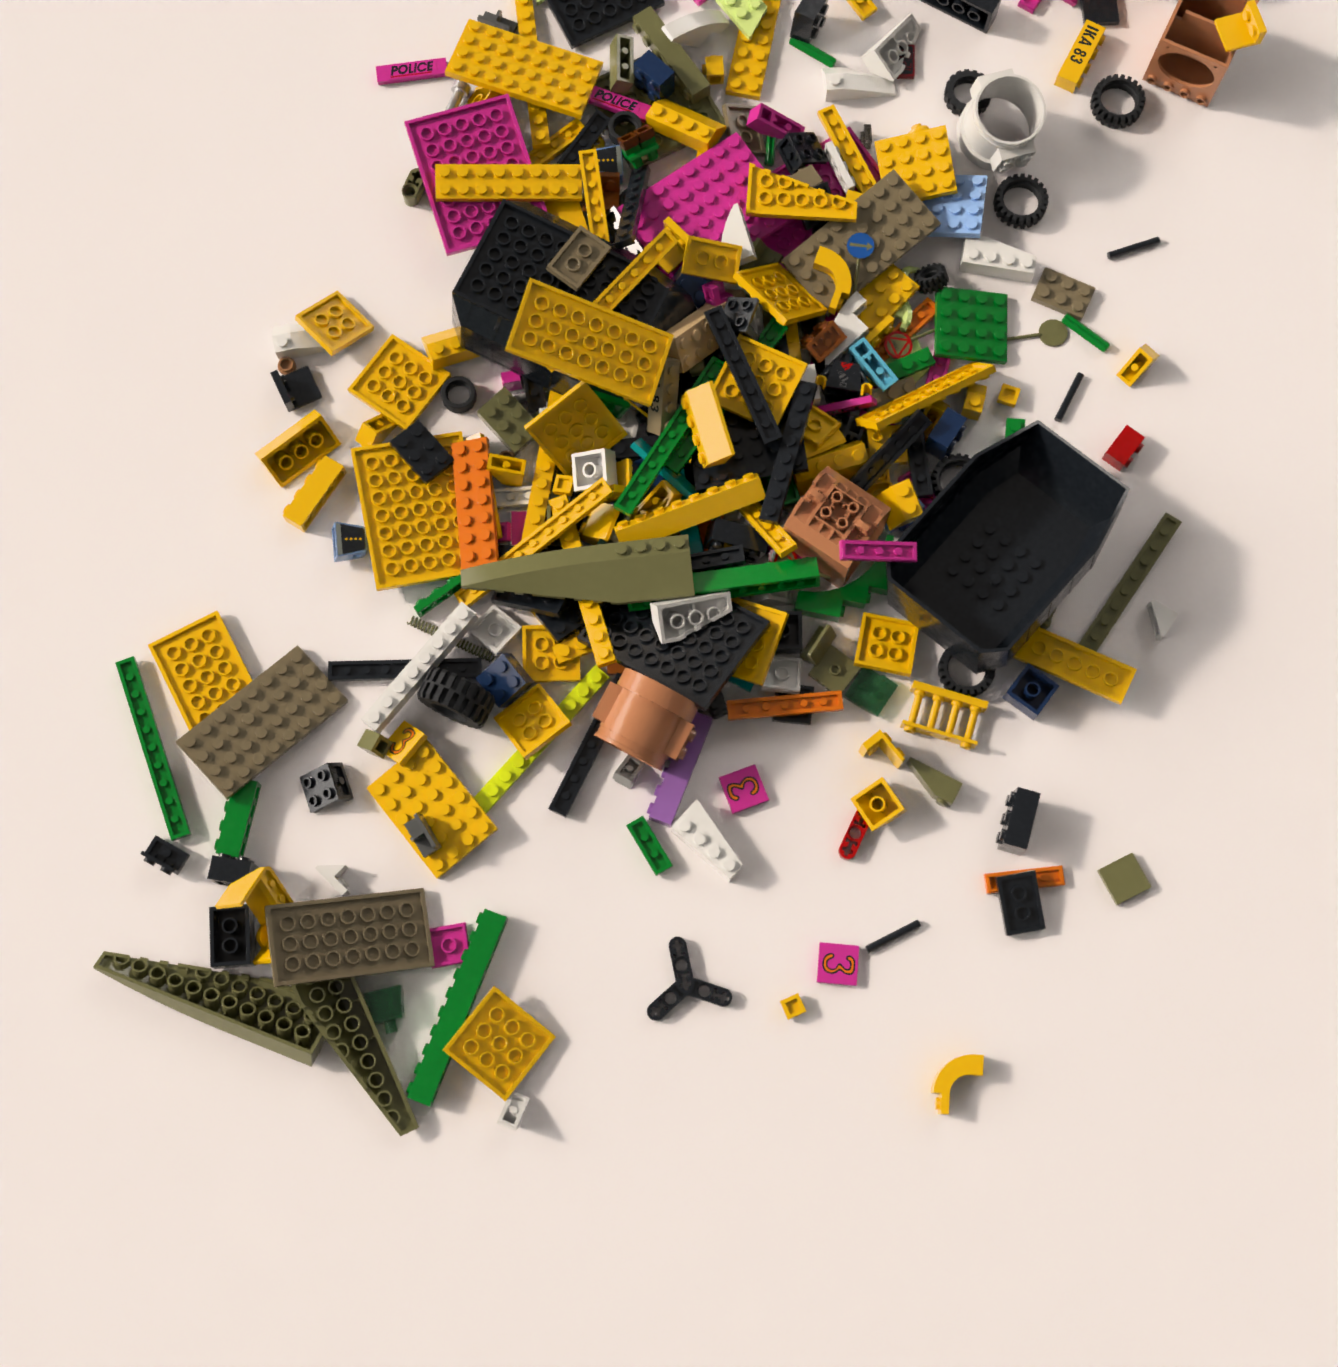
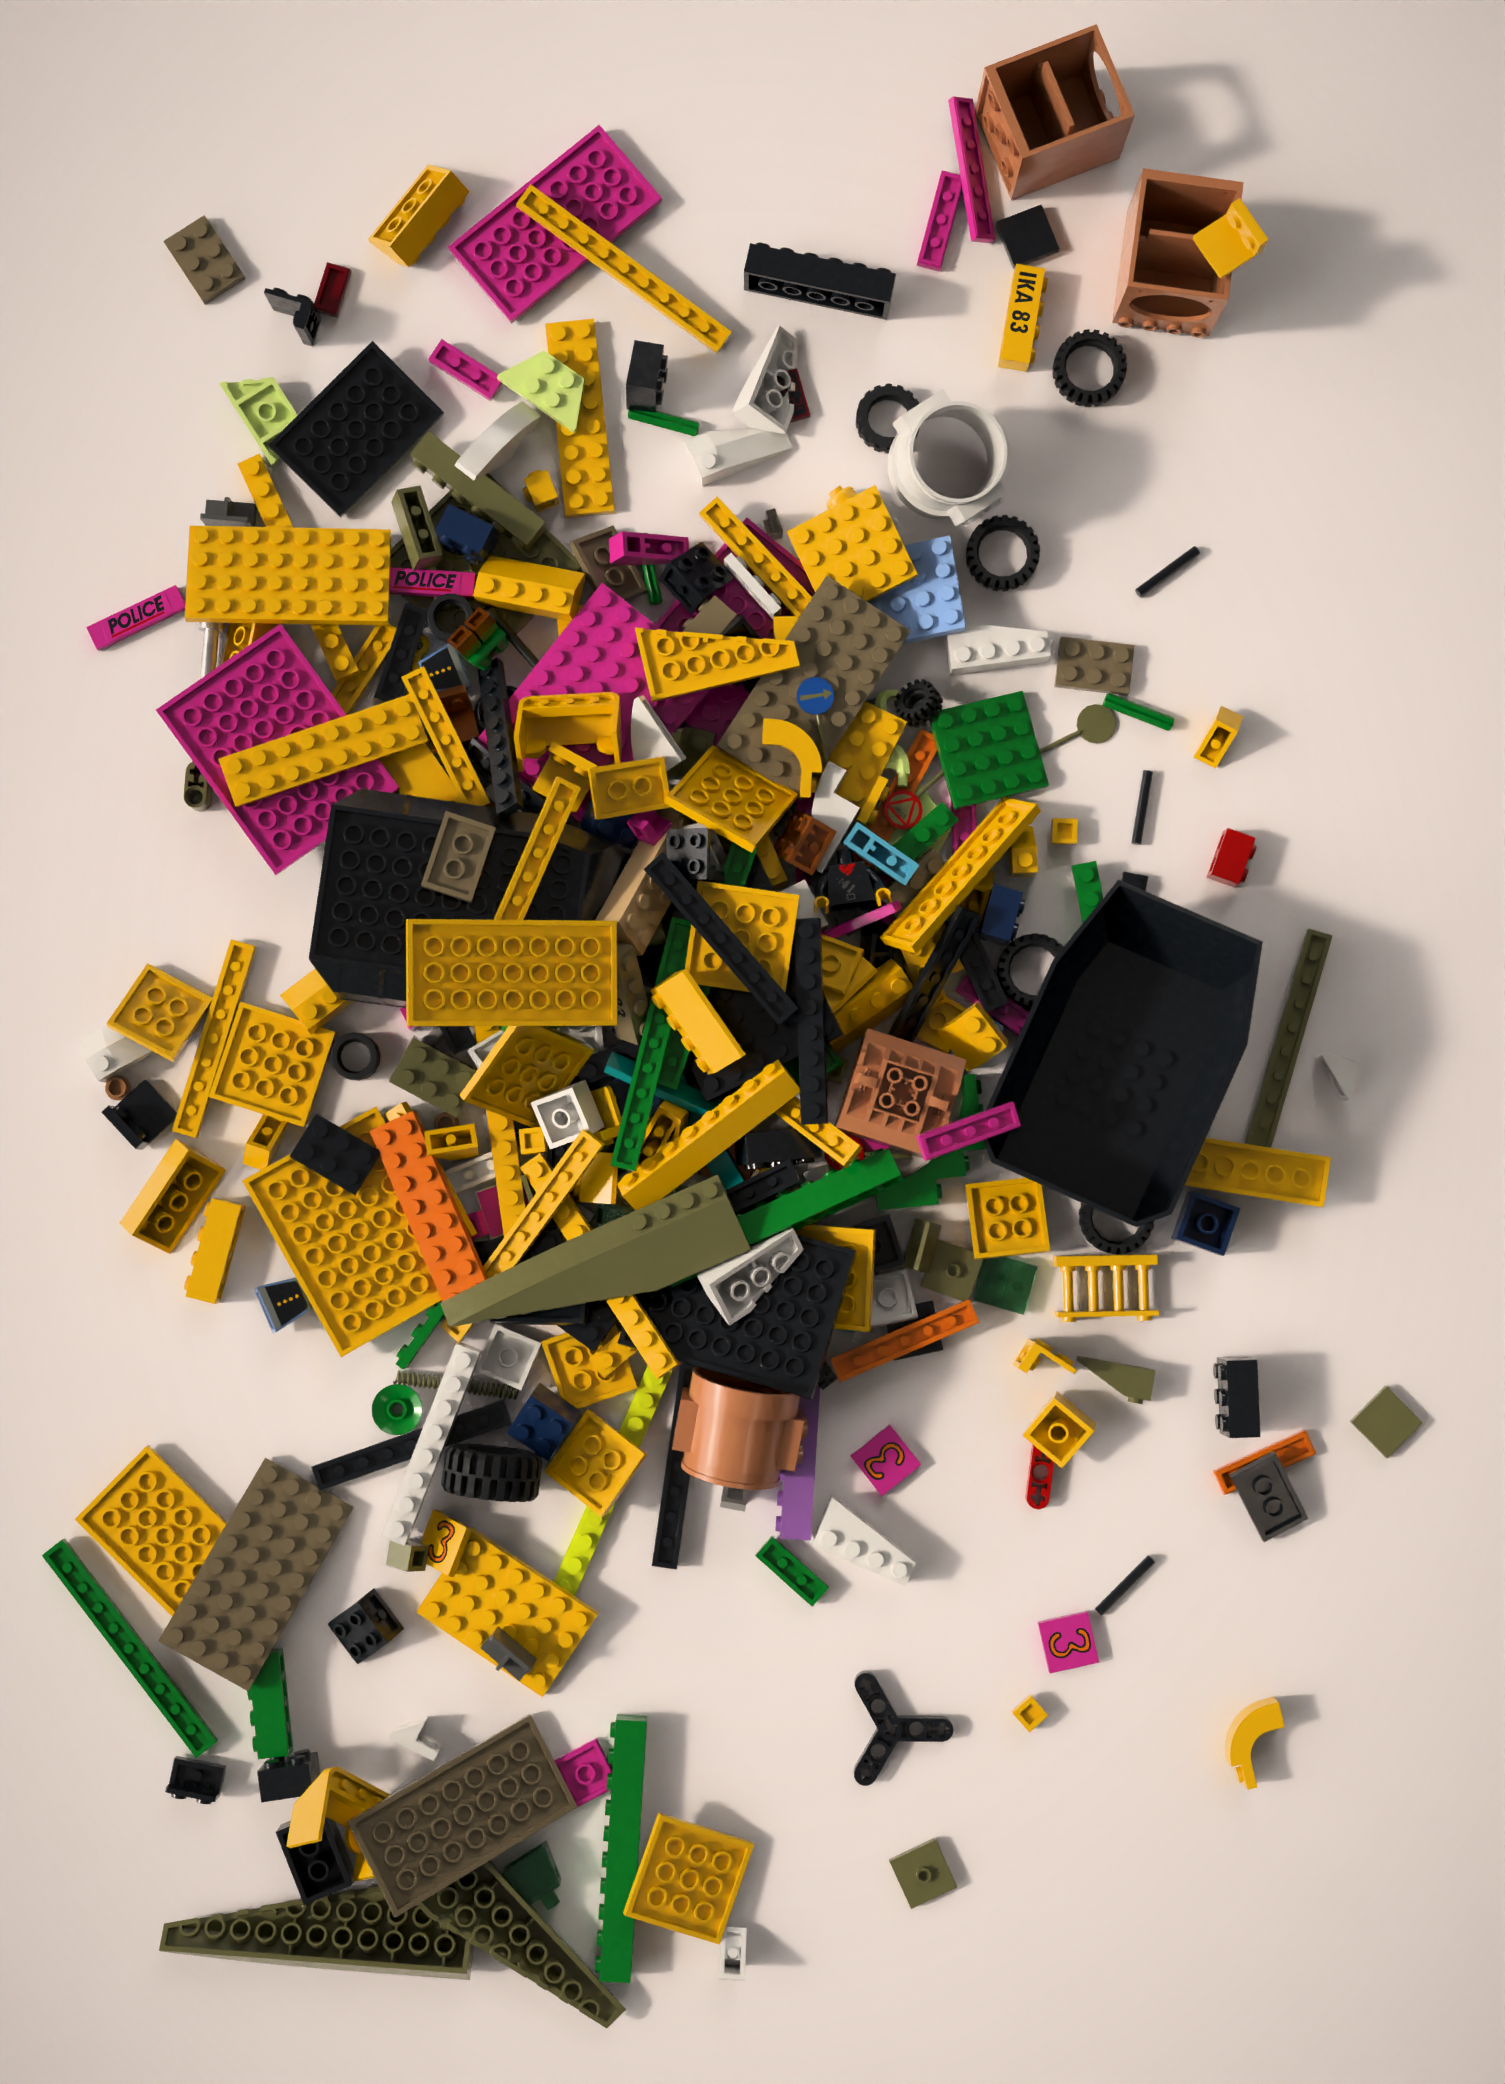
camera: 20 degrees left, 10 degrees up
(370, 345) = (214, 1038): none -> yellow plate
(396, 635) = (387, 1418): none -> green dish
(663, 155) = (514, 639): none -> pearl dark grey bar
(675, 1101) = (923, 1873): none -> olive plate
(685, 210) = (568, 721): none -> yellow windscreen

